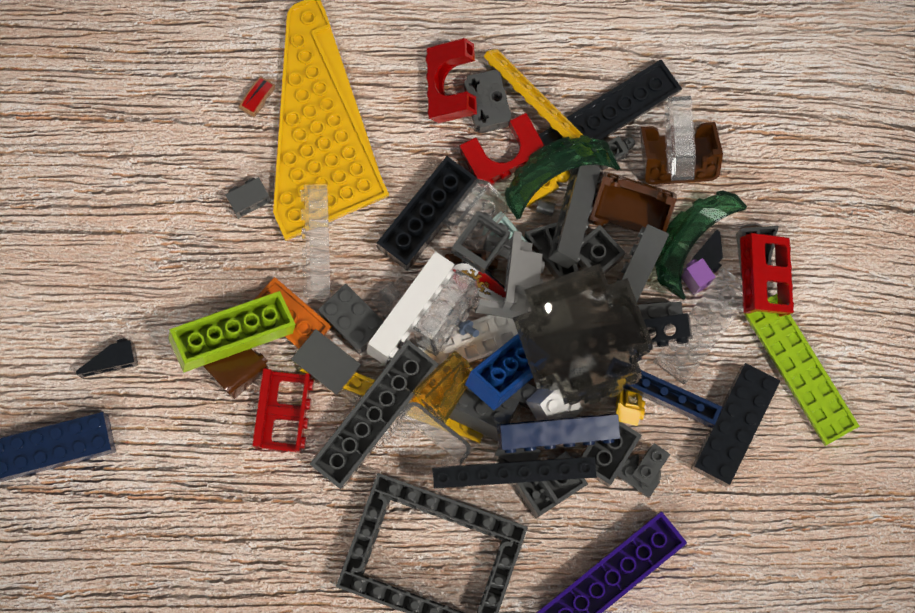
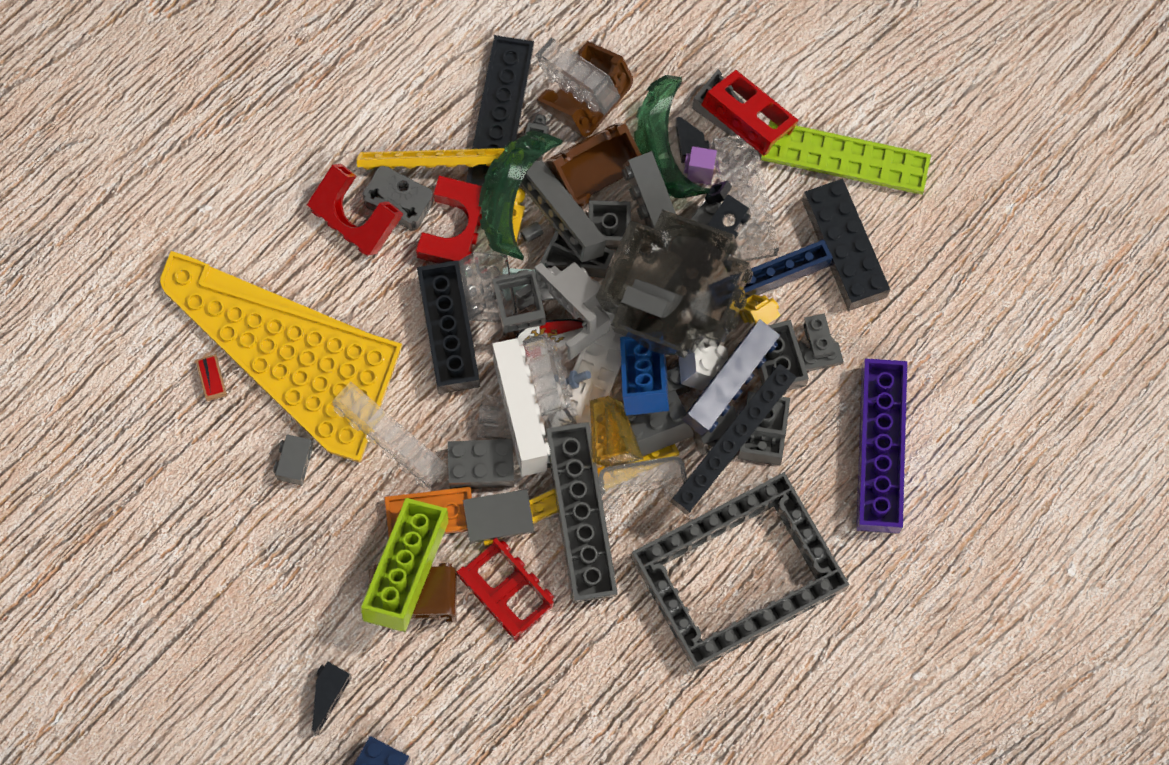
camera: 50 degrees left, 5 degrees down
(560, 328) = (651, 298): none -> dark grey slope
(686, 305) = (718, 192): none -> black plate

